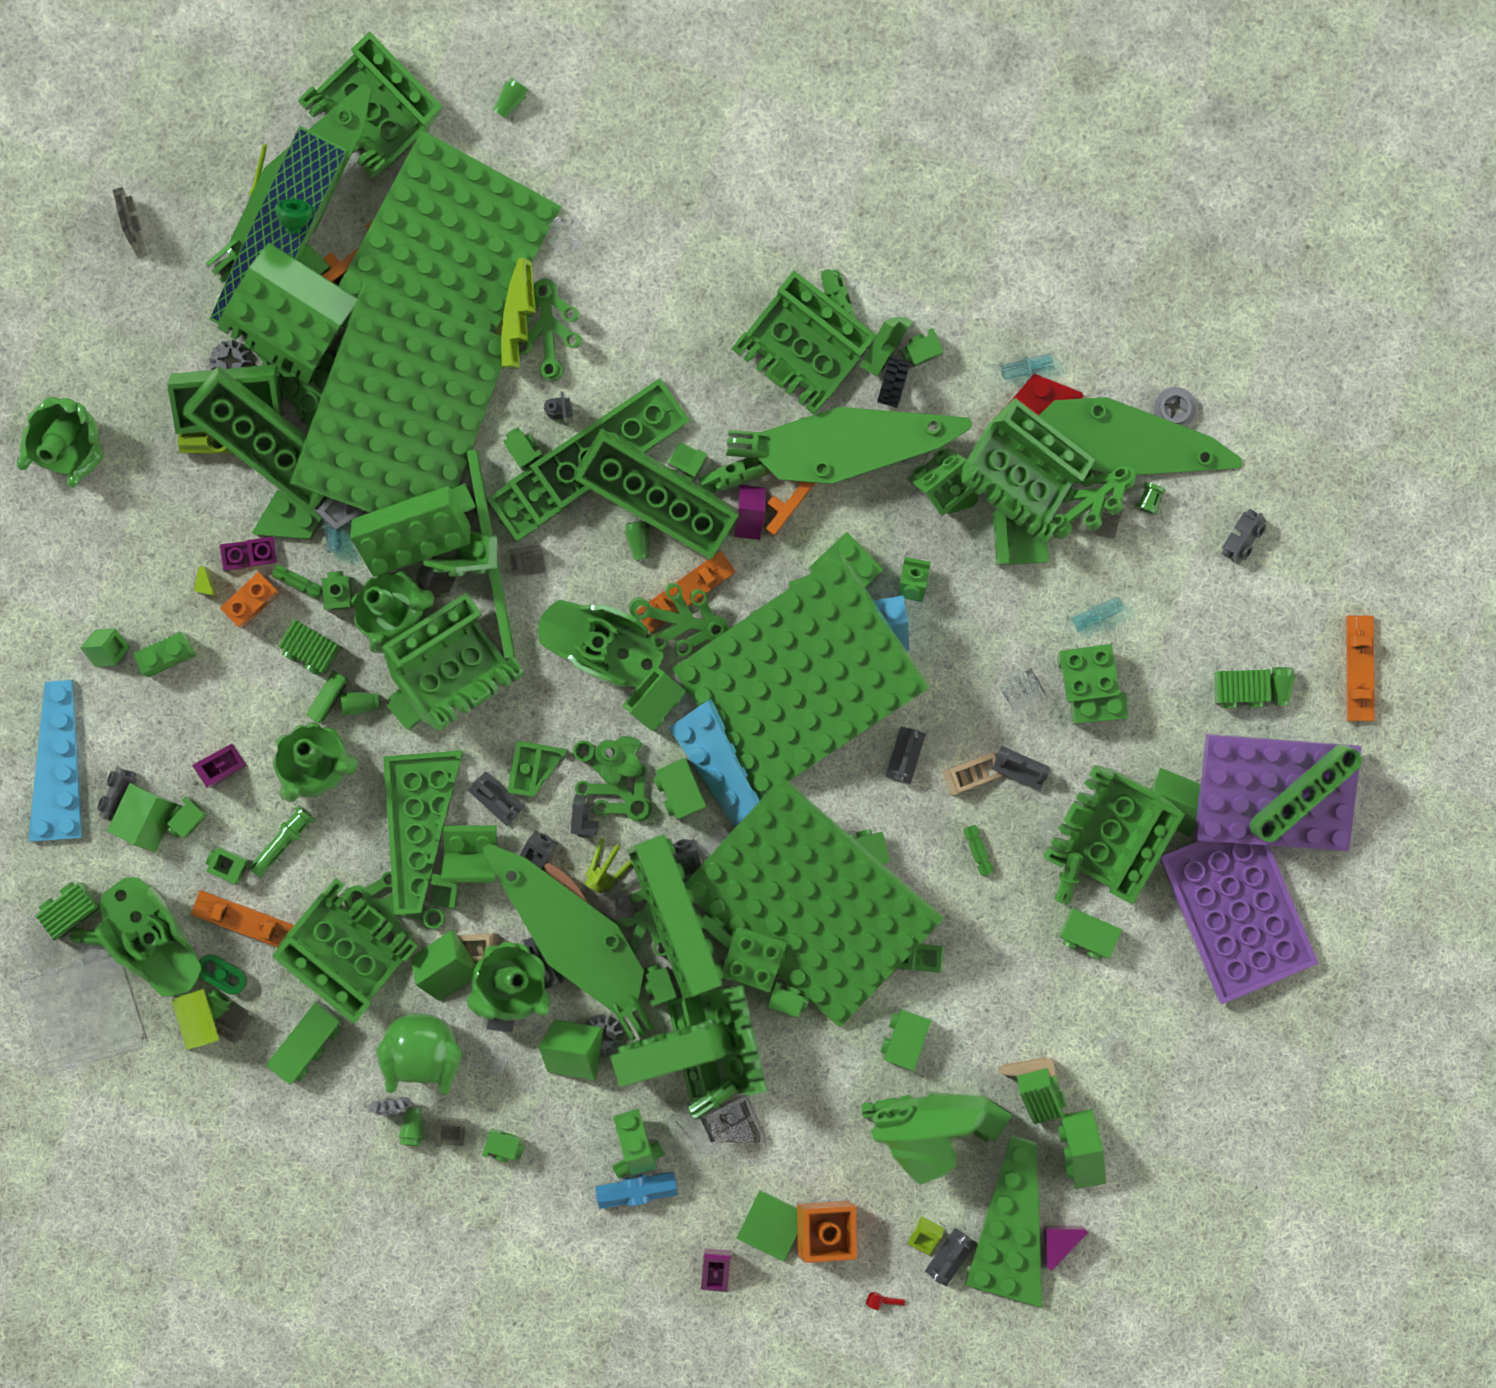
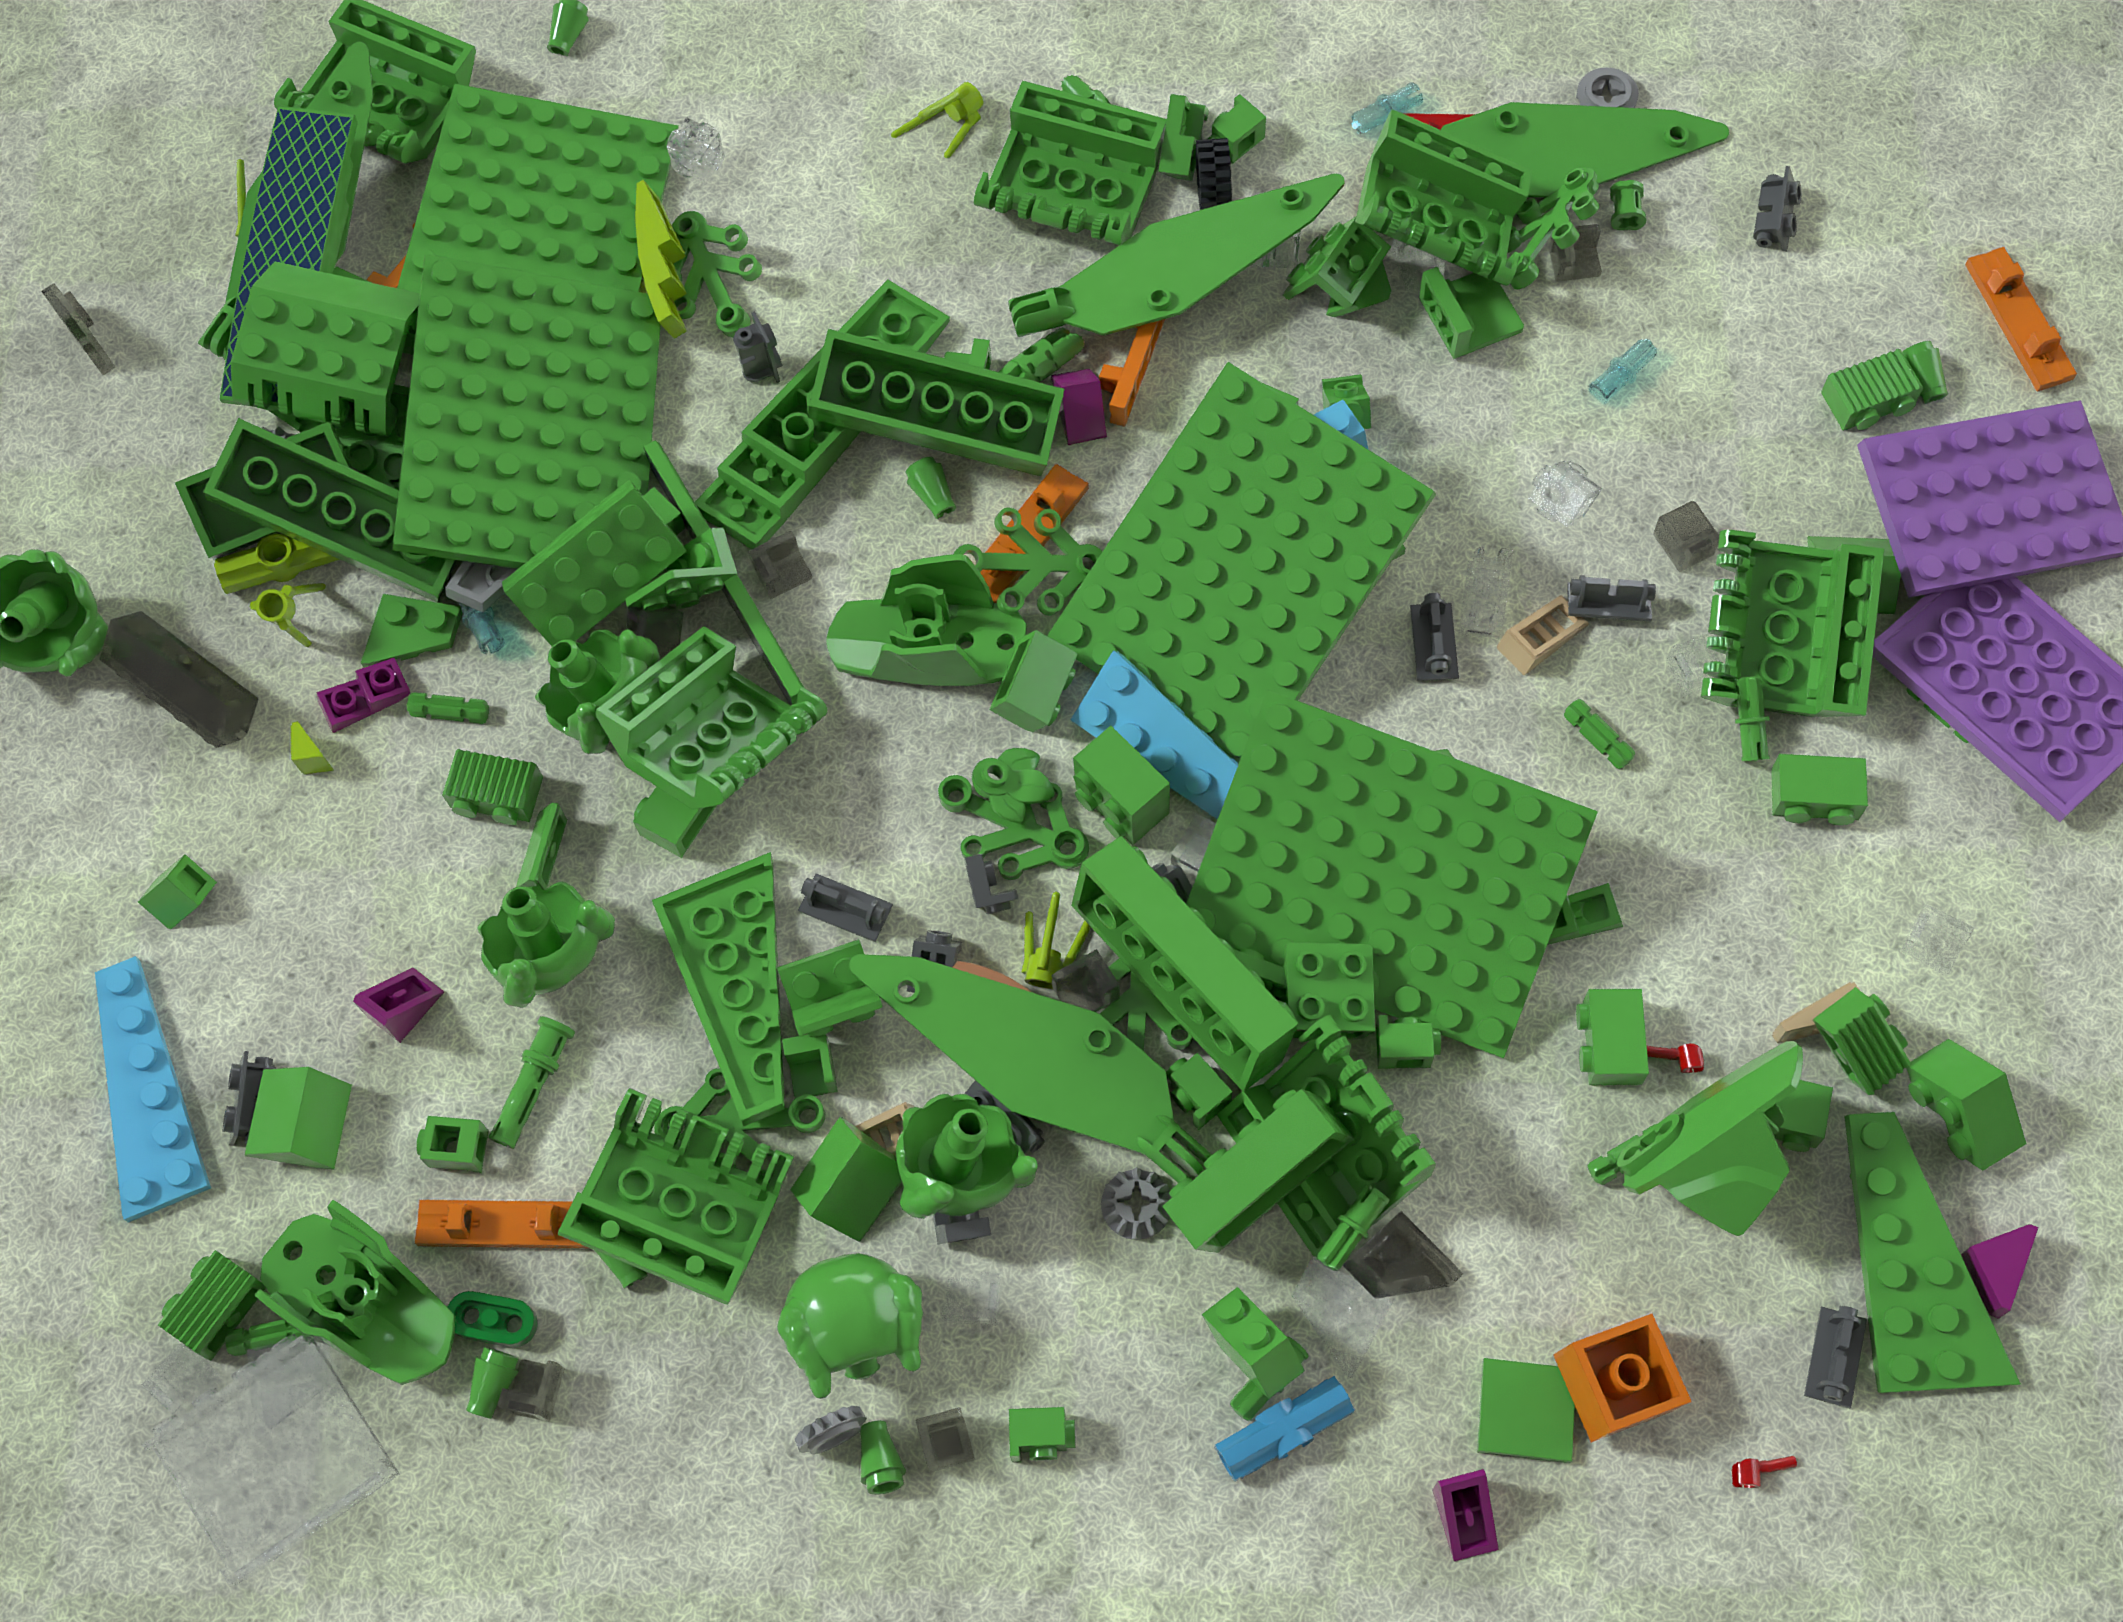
camera: 15 degrees left, 20 degrees down
(137, 507) = (178, 679): none -> clear smoke brick
(164, 654) = (271, 867): bright green brick -> none
(185, 818) = (368, 1096): bright green brick -> none
(195, 1019) = (465, 1400): lime slope -> none
(211, 488) = (280, 607): none -> lime plant
(250, 600) = (382, 749): orange brick -> none
(293, 214) = (299, 210): green brick -> none
(305, 1043) = (659, 1380): bright green brick -> none
(341, 600) = (517, 708): bright green brick -> none
(357, 703) = (589, 841): bright green cone -> none
(522, 448) = (720, 424): bright green brick -> none
(532, 766) = (885, 841): bright green wing -> none
(572, 1049) = (1097, 1237): bright green slope -> none
(750, 257) = (959, 104): none -> lime plant
(926, 1236) = (1781, 1339): lime slope -> none
(945, 1064) = (1689, 1056): none -> red hand
(1084, 744) = (1686, 535): none -> clear smoke panel
(1089, 673) = (1648, 432): bright green bracket -> none
(1100, 709) = (1686, 477): bright green brick -> none
(1293, 794) = (2039, 471): bright green beam -> none

